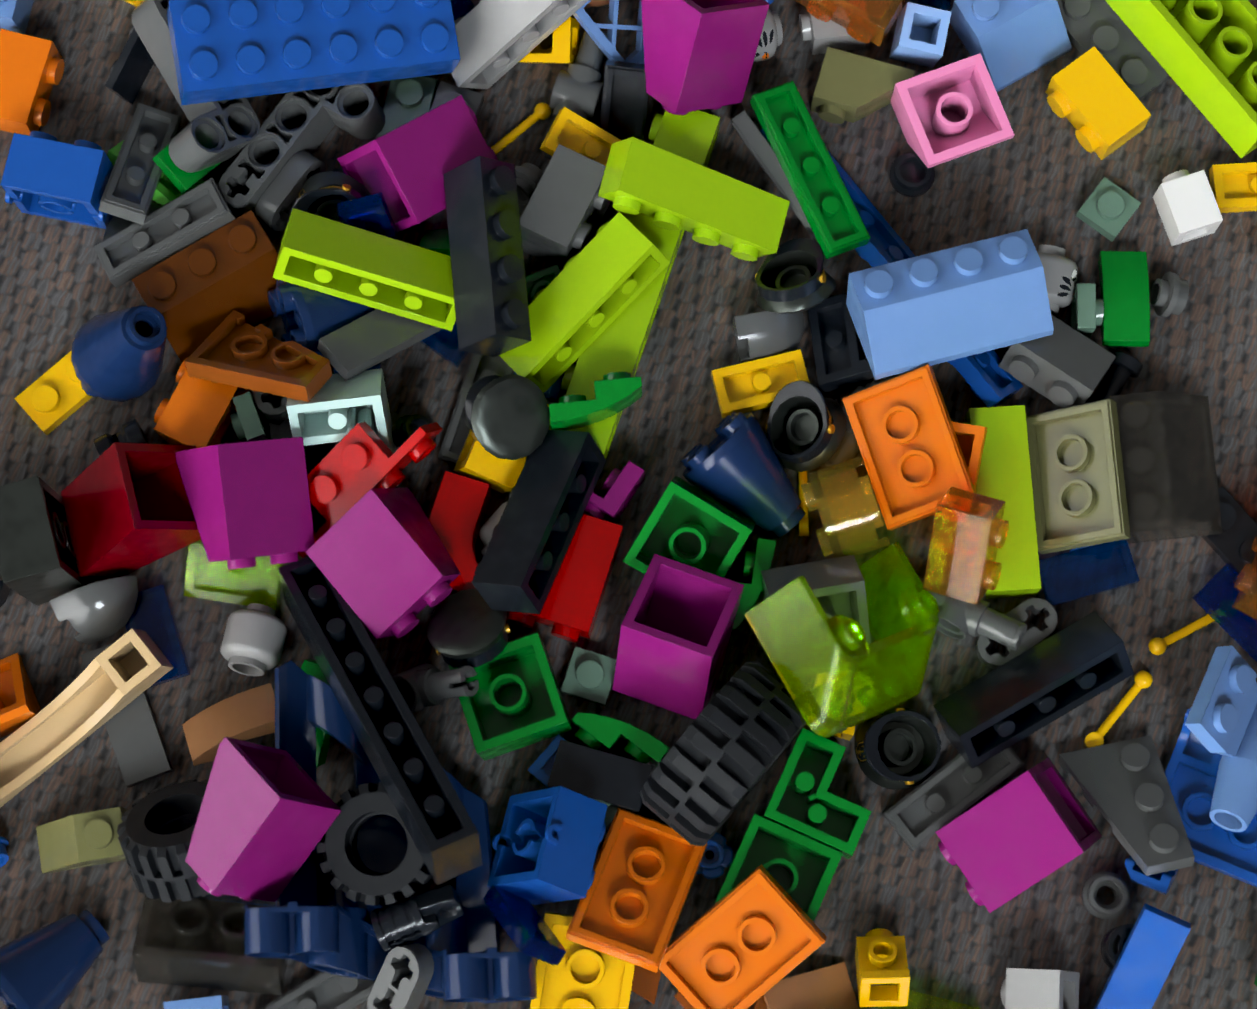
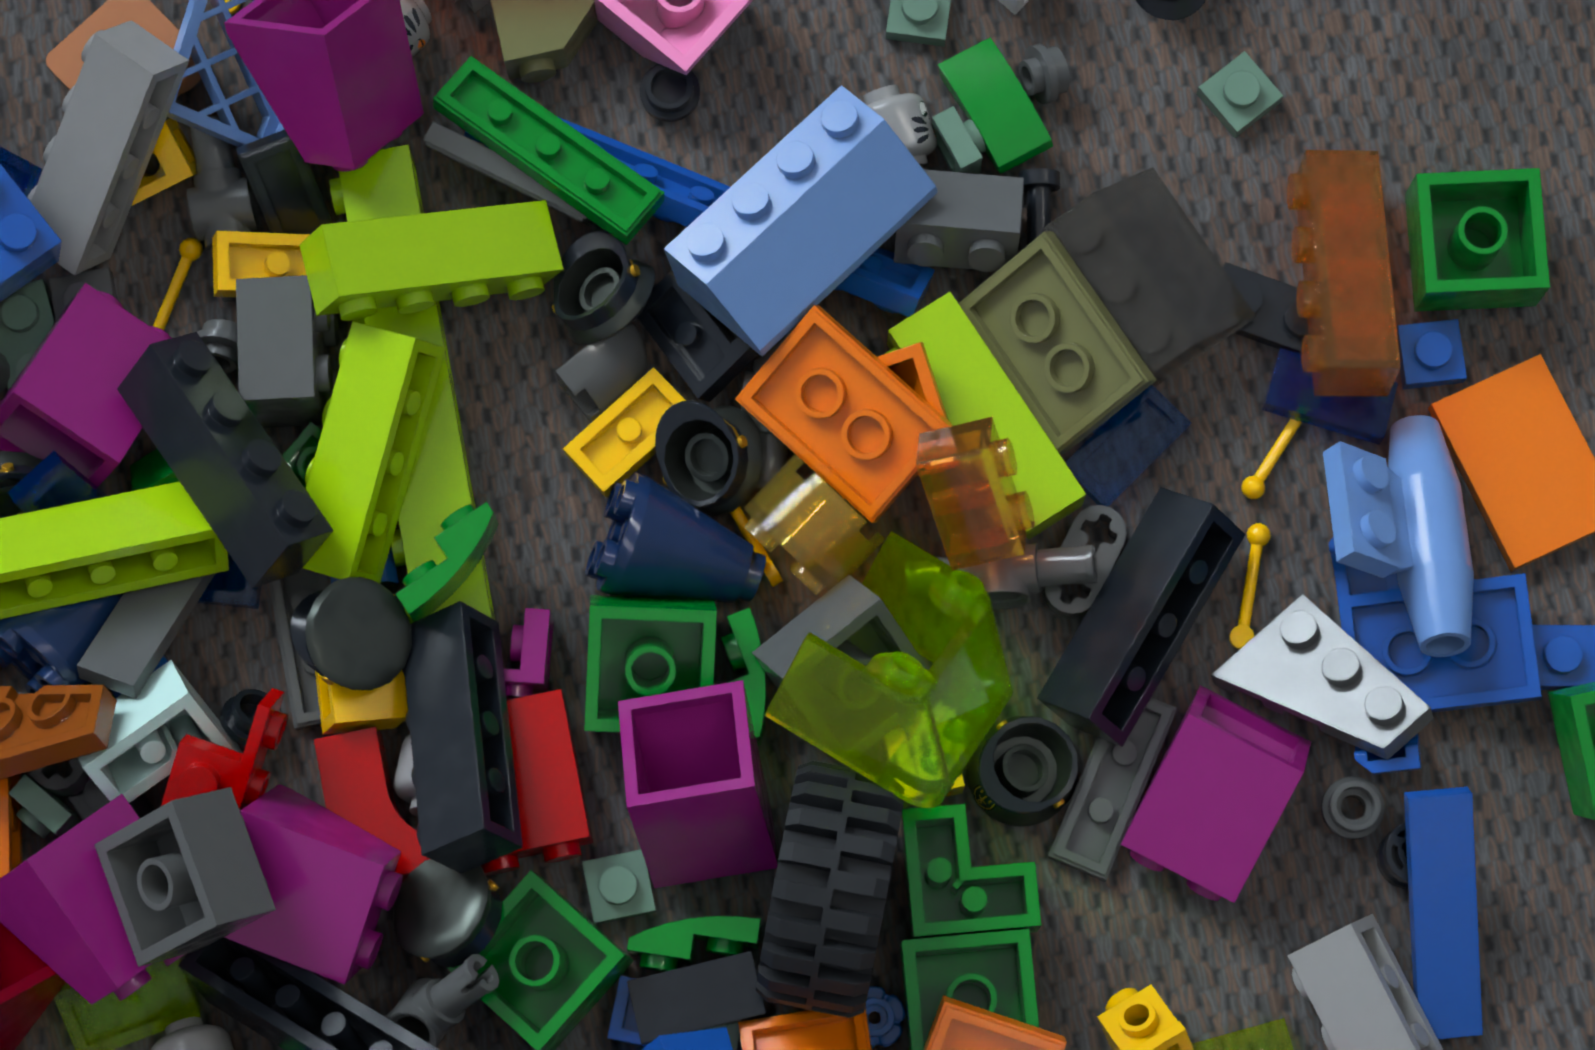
camera: 30 degrees left, 0 degrees up
(312, 511) = (184, 876): none -> dark grey brick

